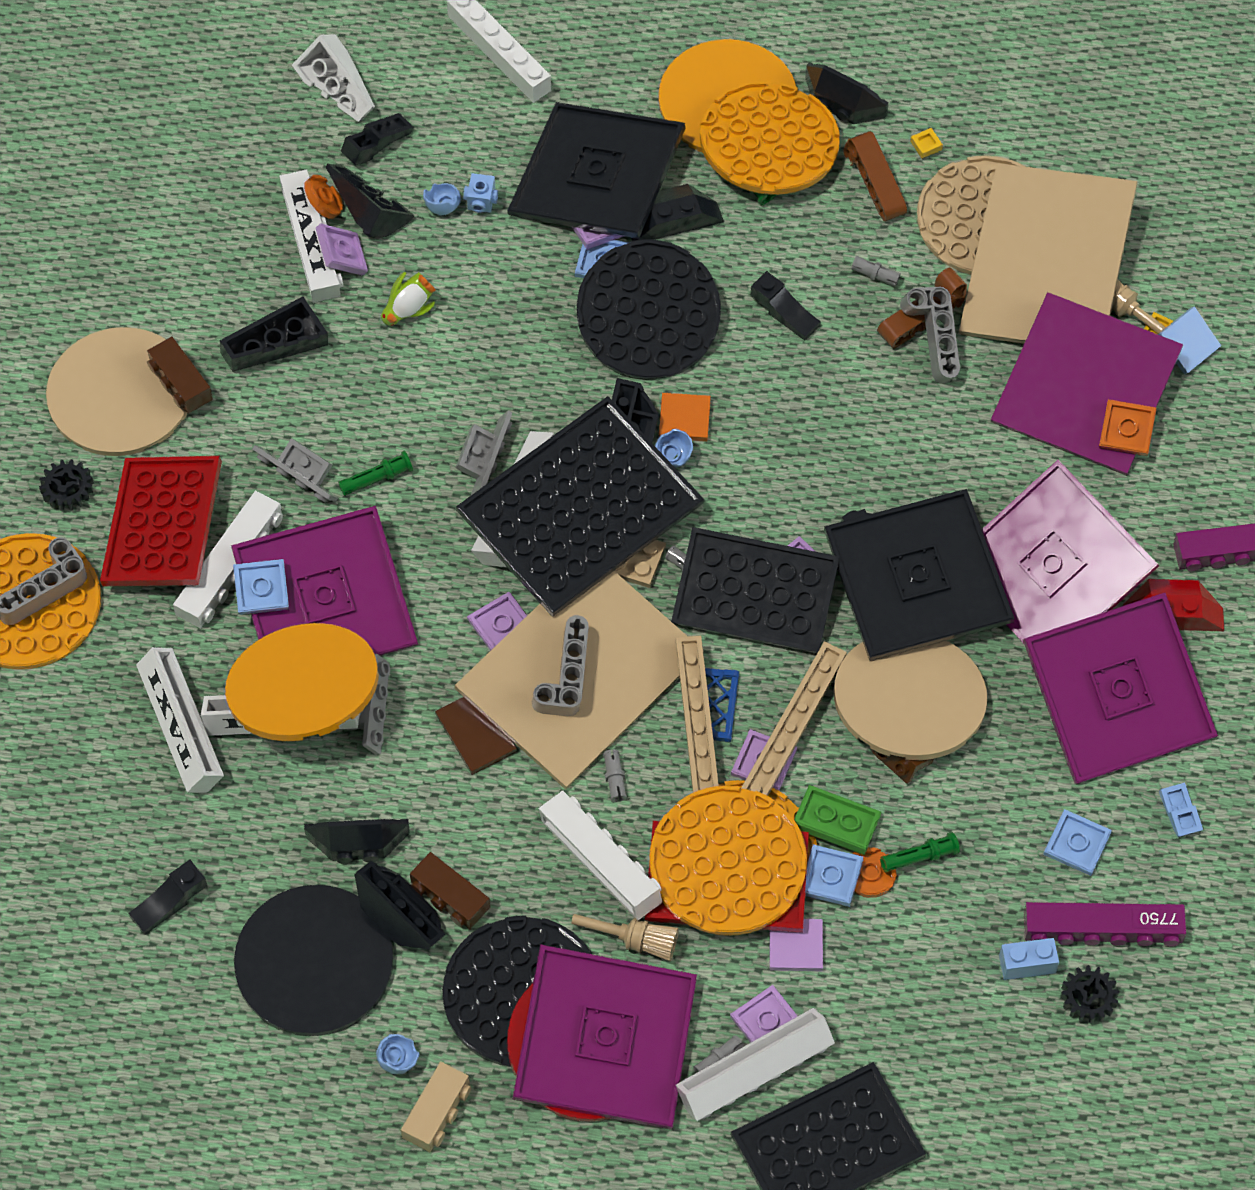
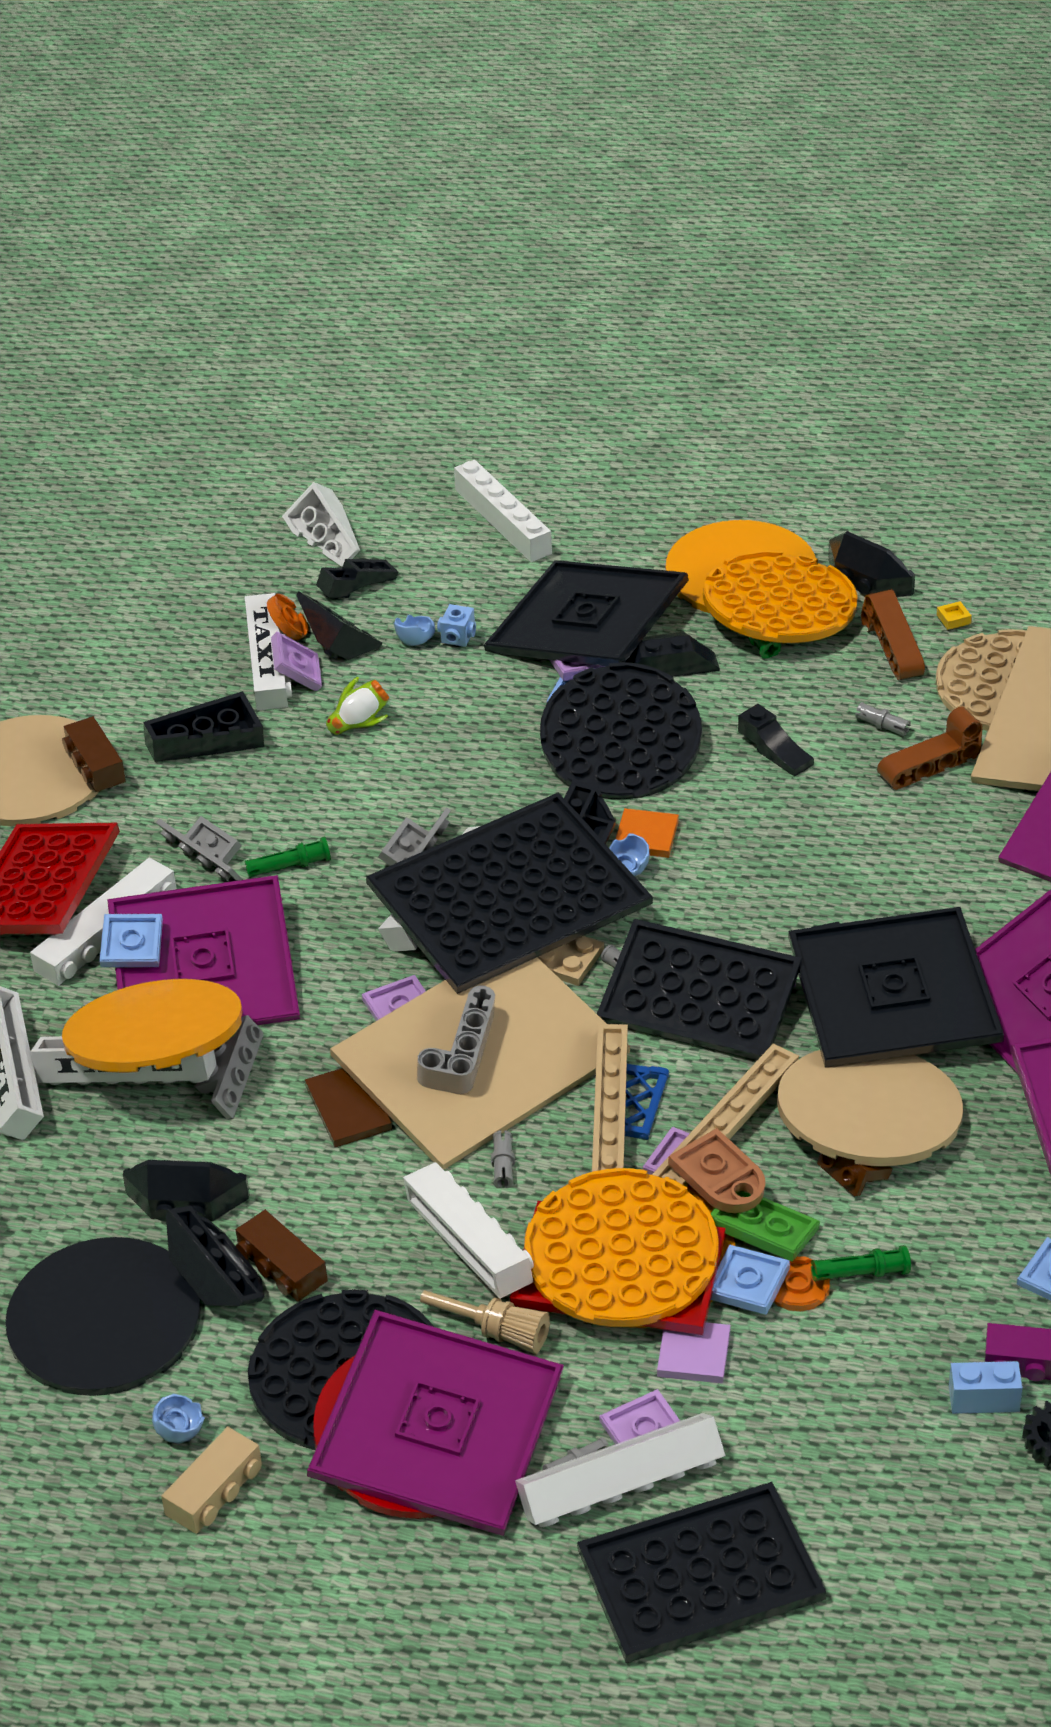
camera: 10 degrees right, 20 degrees down
(796, 778) = (719, 1171): none -> nougat tile
(935, 334) = (934, 742): light grey beam -> none

